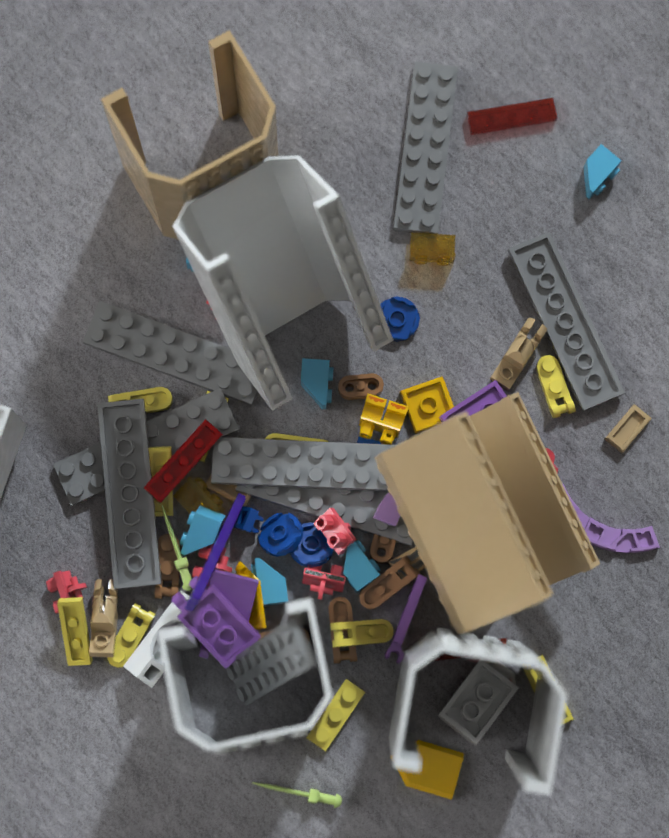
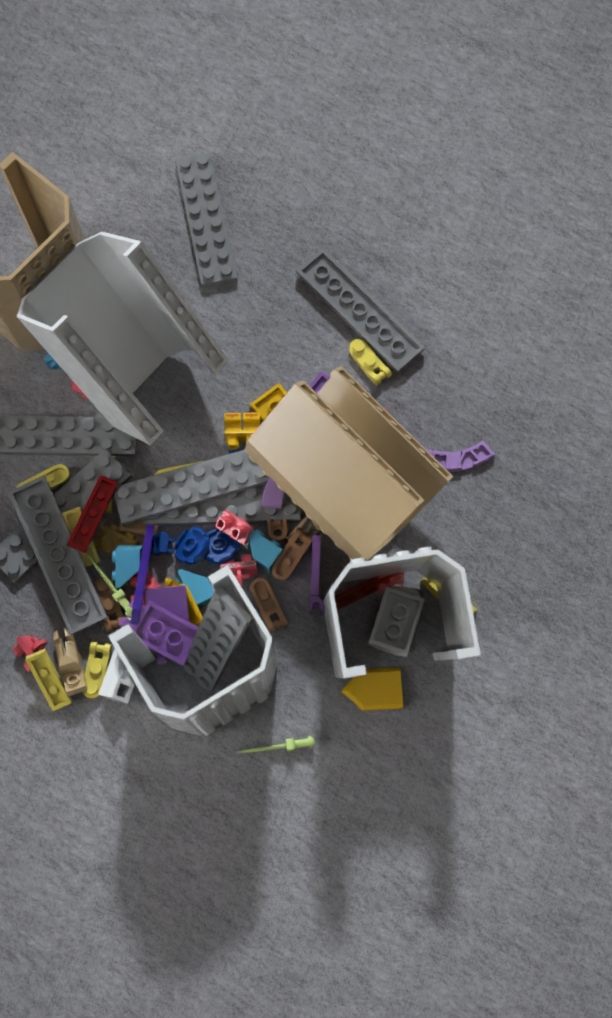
camera: 15 degrees left, 5 degrees down
(315, 378) = (179, 419): medium azure slope -> none
(335, 715) = (285, 673): light yellow plate -> none
(360, 385) = (216, 411): medium nougat plate -> none
(361, 632) = (283, 599): light yellow plate -> none
(401, 317) = (233, 349): blue tile -> none
(432, 248) = (237, 290): clear yellow bracket -> none
(511, 116) = (264, 175): clear red tile -> none
(517, 355) = (332, 345): tan plate -> none
(598, 168) = (344, 190): medium azure slope -> none
(628, 428) = (437, 374): tan tile -> none

